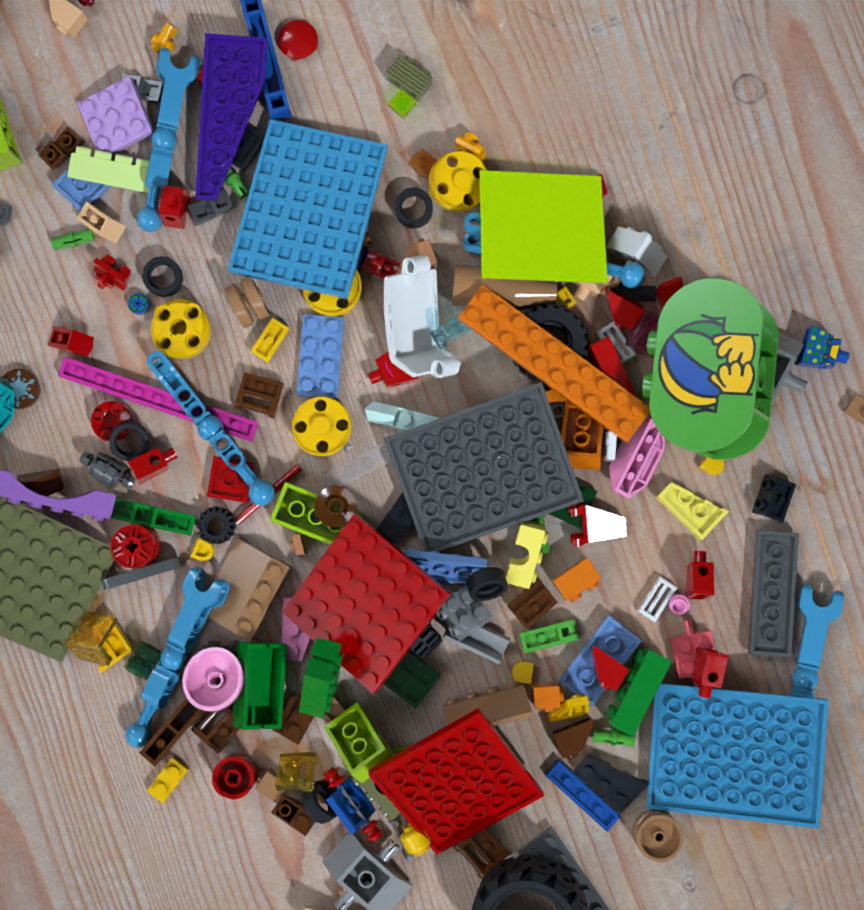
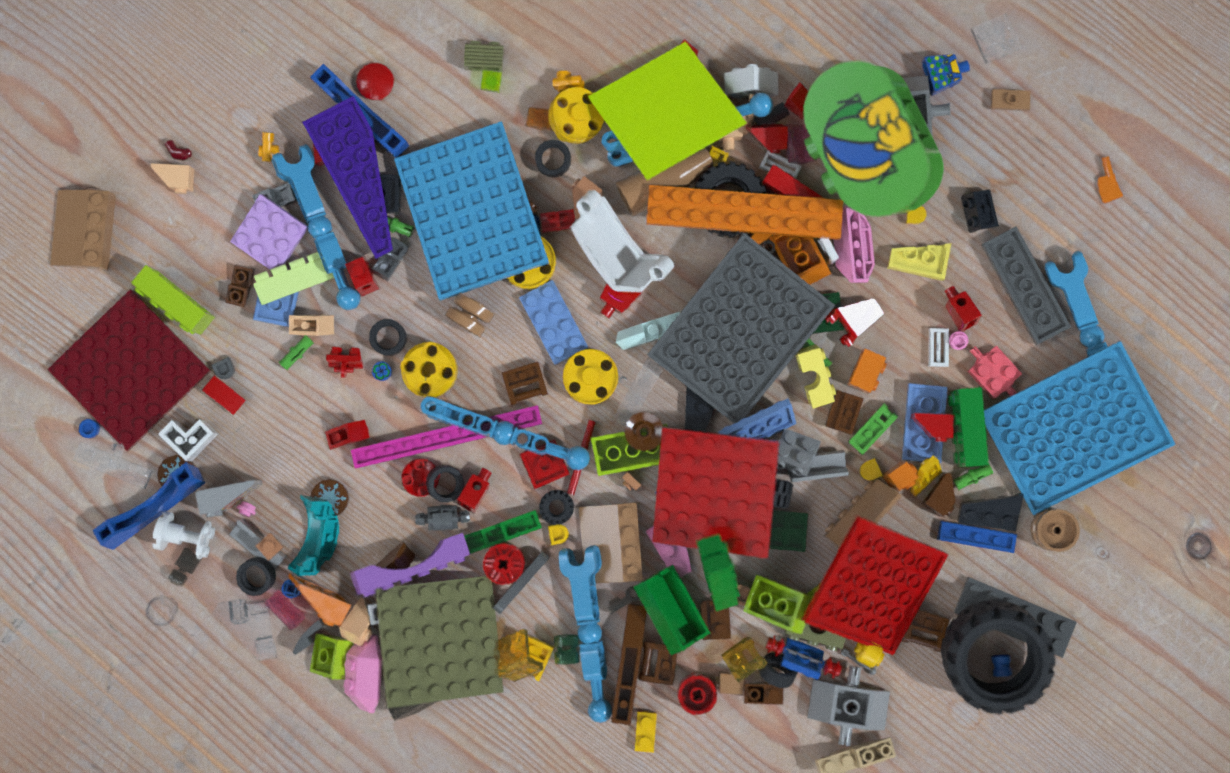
camera: 35 degrees left, 0 degrees up
(201, 678) = (621, 627): bright pink dish -> none
(270, 340) = (505, 334): yellow plate -> none
(449, 332) = (644, 238): clear light blue bracket -> none
(487, 583) = (799, 418): black tyre -> none
(709, 670) = (1014, 376): red torso -> none

